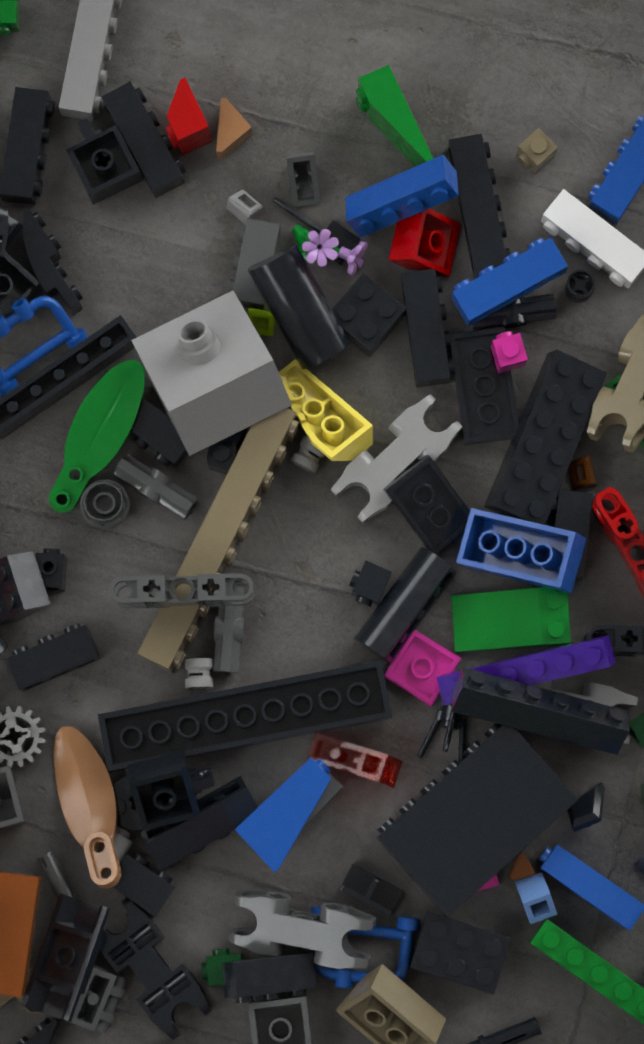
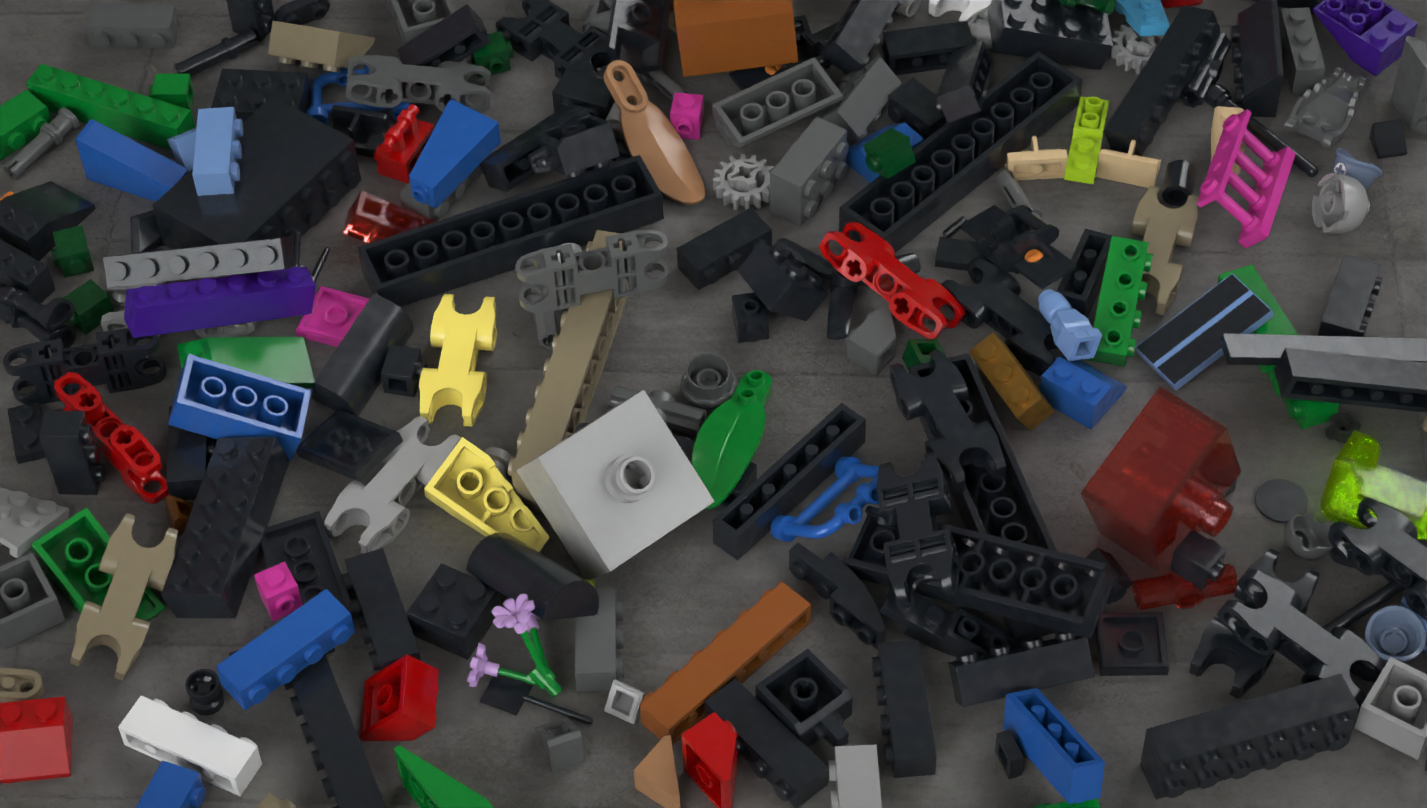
camera: 165 degrees right, 30 degrees down
(50, 832) = (687, 115): none -> dark pink brick
(156, 219) = (731, 655): none -> dark orange brick
(312, 607) = (456, 378): none -> light yellow piece
(328, 858) = (402, 145): none -> red brick
(401, 196) = (431, 716): blue brick -> none
(509, 840) = (217, 151): none -> medium blue brick
(547, 991) = (173, 89): none -> green brick

